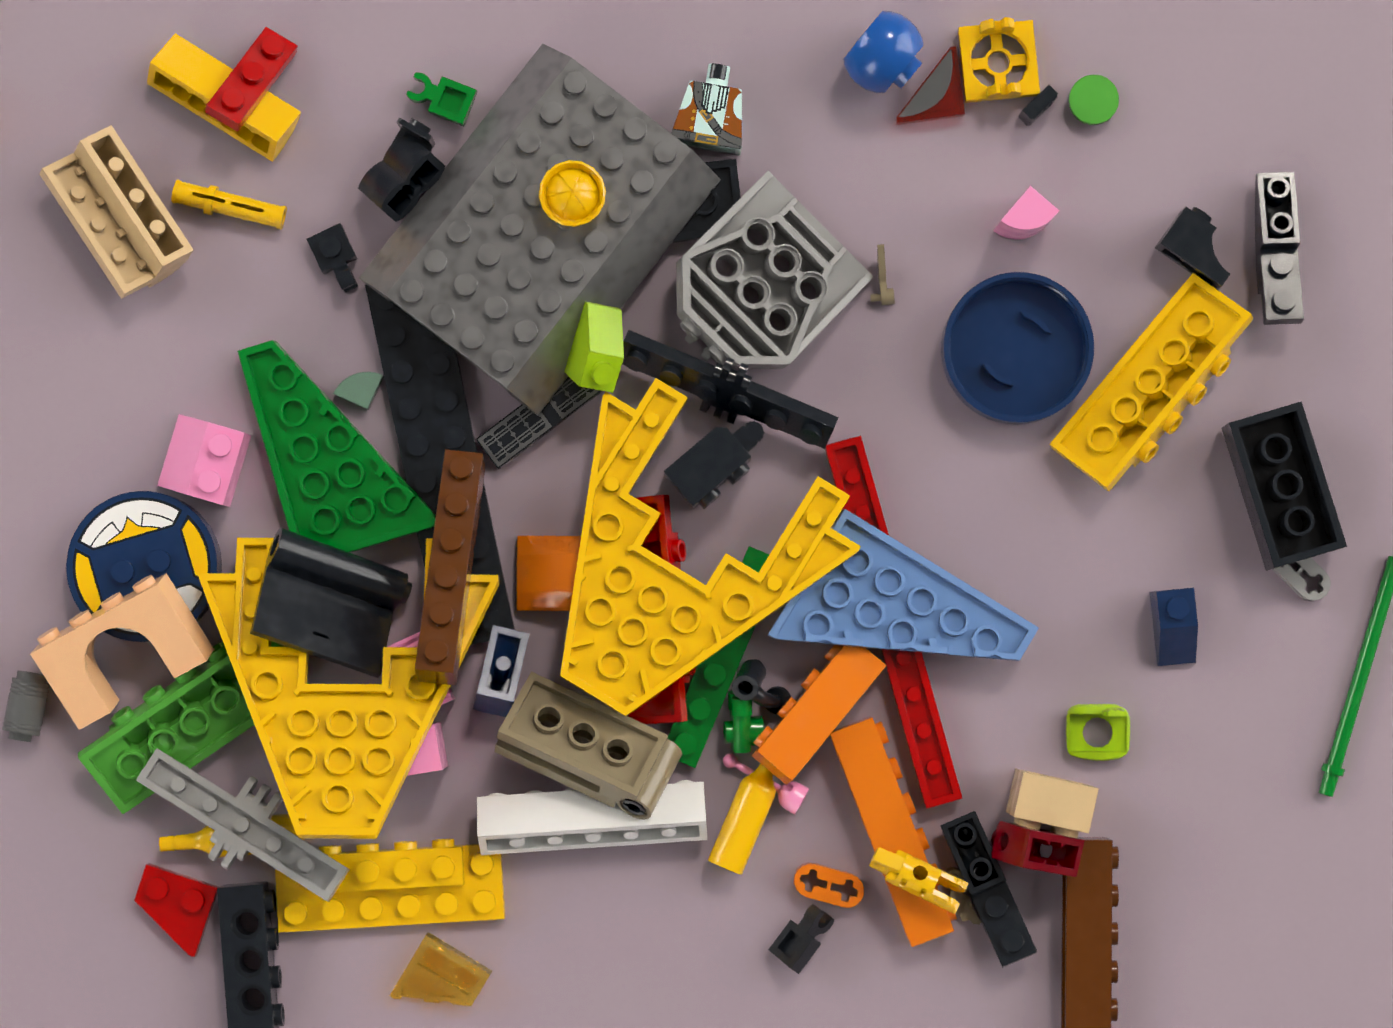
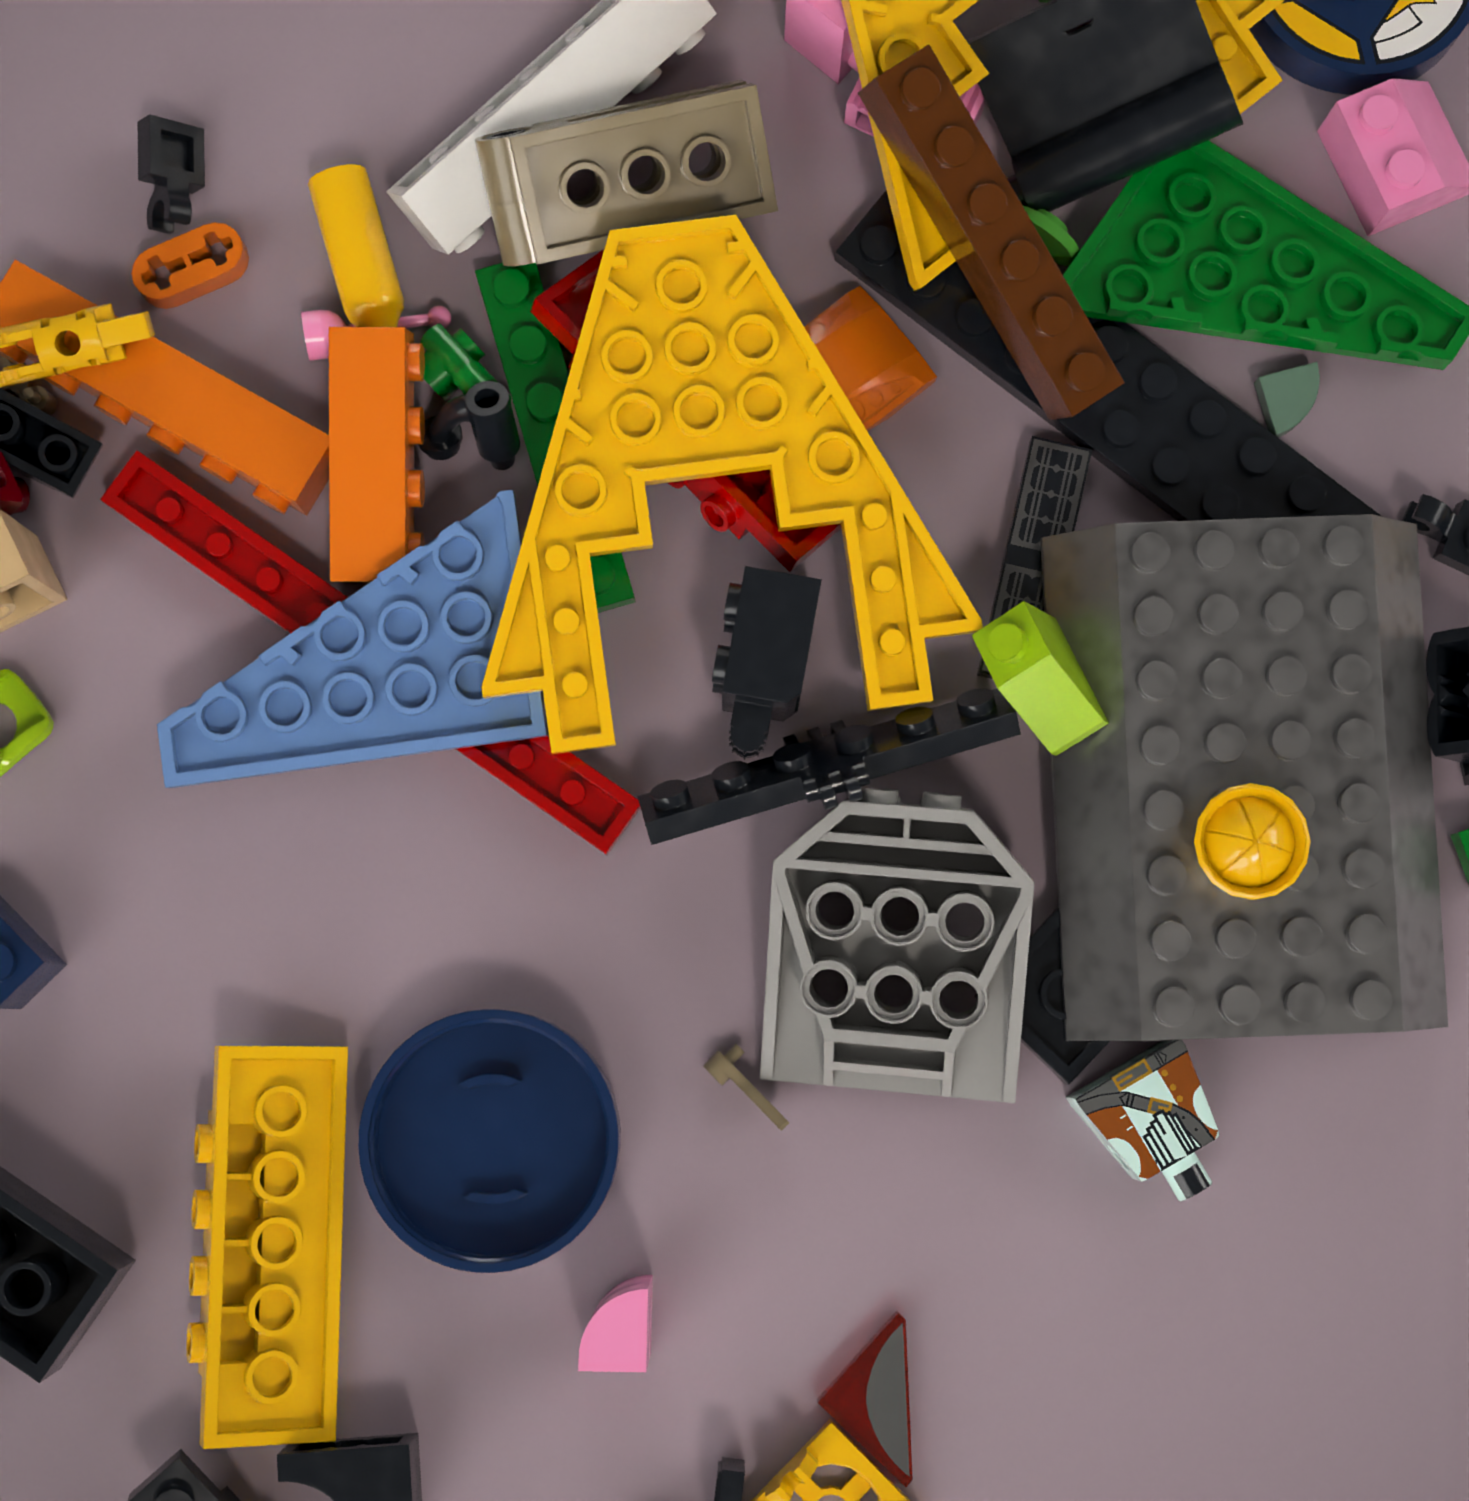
camera: 140 degrees right, 5 degrees down
(410, 561) = (1054, 235): none -> bright green piece
(501, 671) = (817, 188): slope -> none
(885, 53) = (994, 1395): blue wheel -> none

